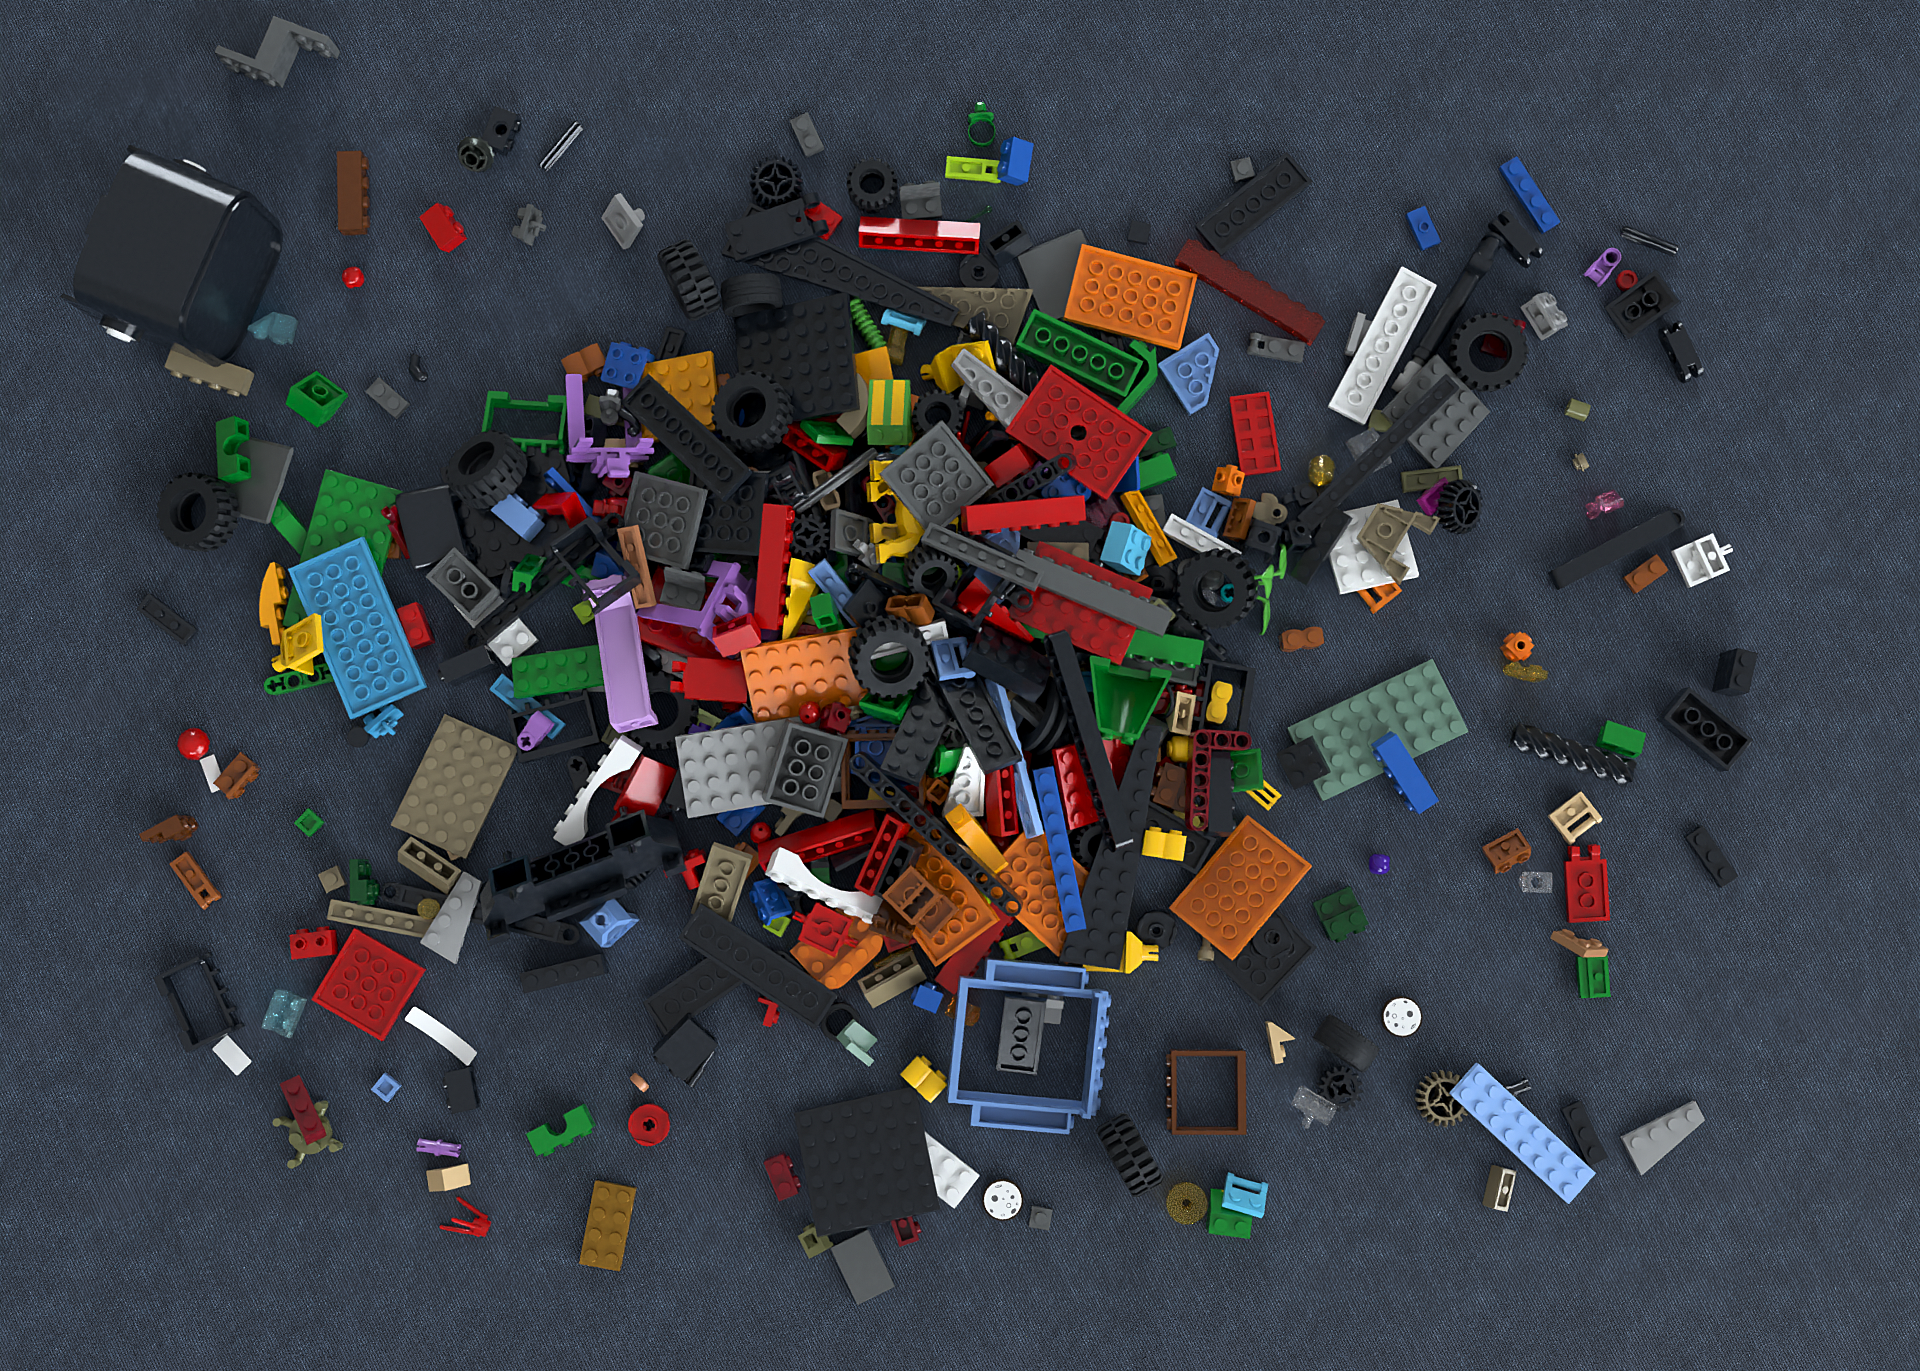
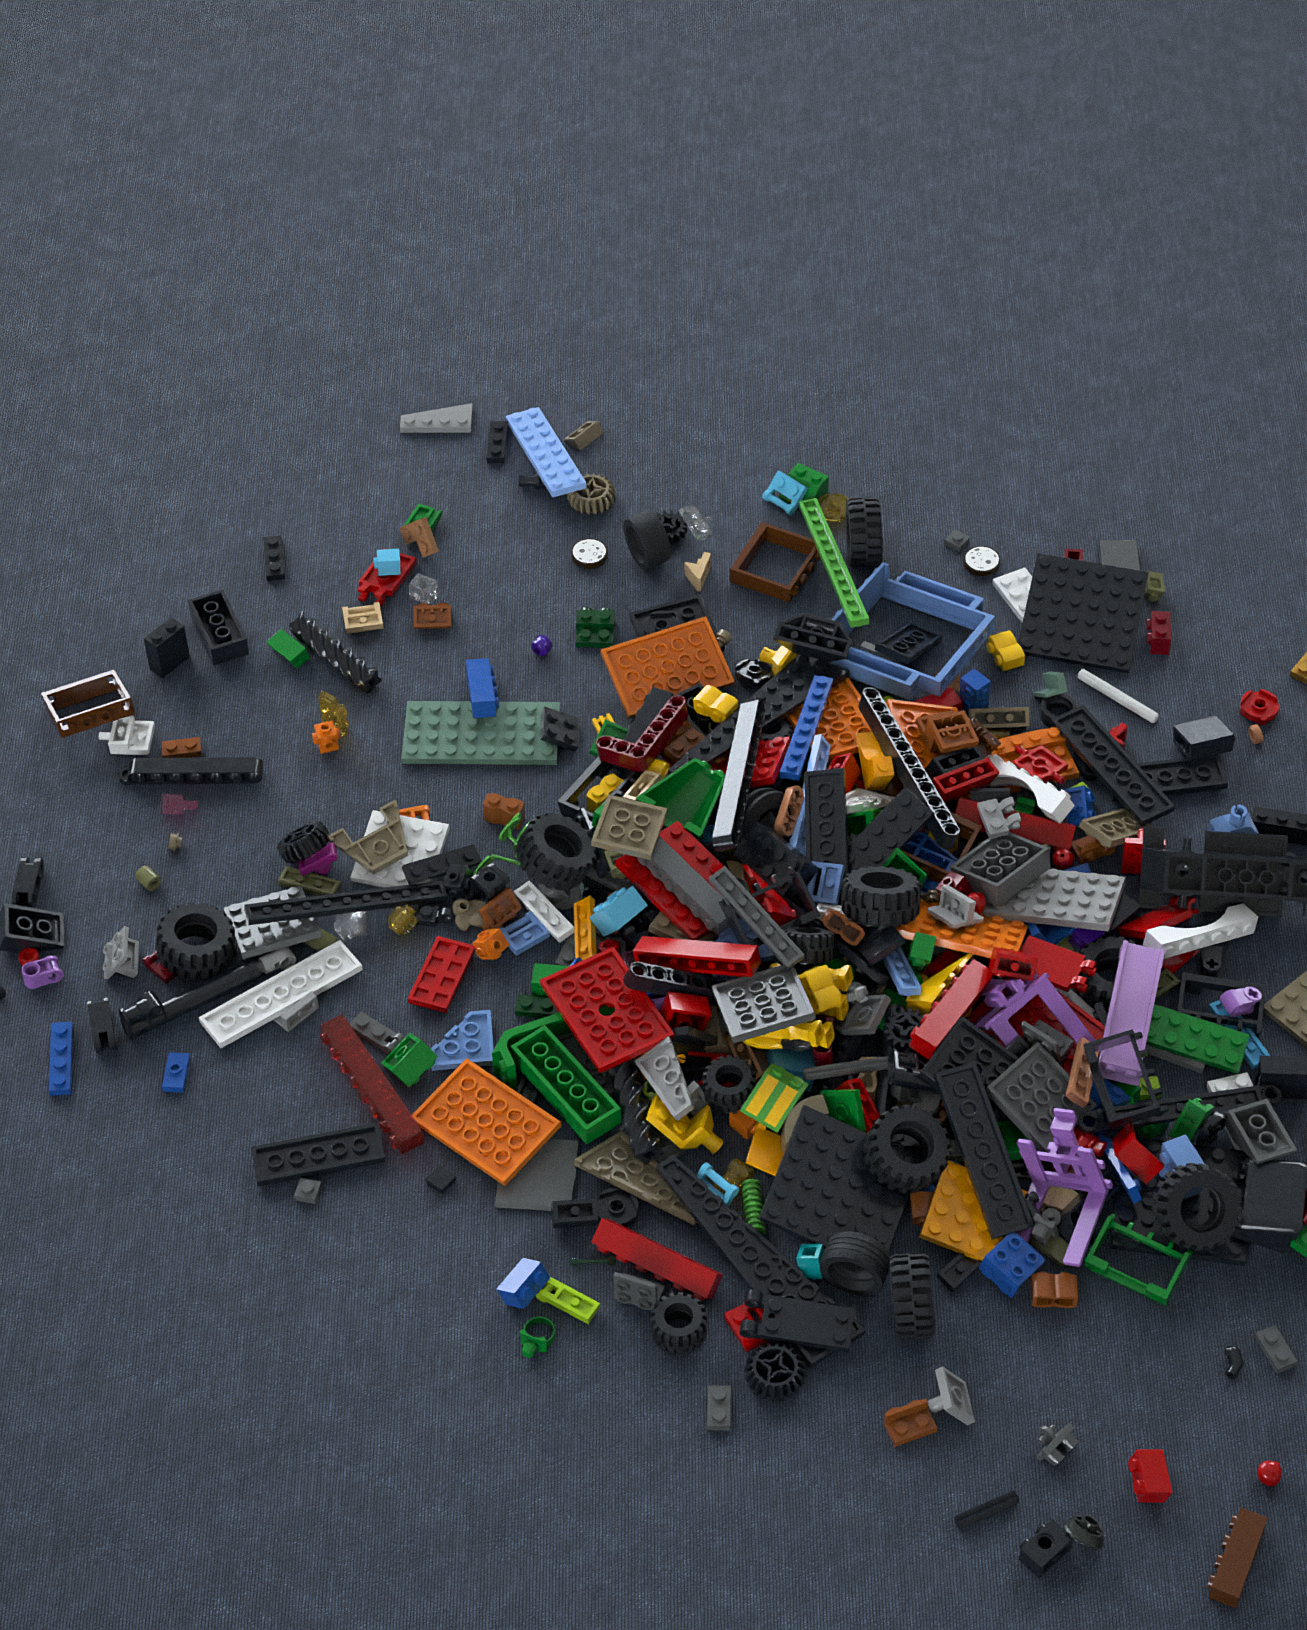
camera: 150 degrees left, 35 degrees down
(650, 191) = (909, 1422): none -> dark orange bracket
(792, 291) = (810, 1259): none -> teal brick
(792, 1073) = (1118, 696): none -> white axle
(818, 681) = (955, 909): none -> light grey bracket
(833, 818) = (993, 819): none -> light grey plate
(893, 519) = (820, 988): none -> yellow brick
(1020, 712) = (784, 822): none -> nougat beam
(1106, 972) = (814, 637): none -> black wedge
(1140, 1095) = (834, 563): none -> bright green plate
(1150, 606) = (629, 827): none -> dark tan plate
(1229, 325) = (409, 1060): none -> green slope
(1590, 891) = (387, 562): none -> medium azure brick
(1784, 589) = (85, 690): none -> reddish brown window

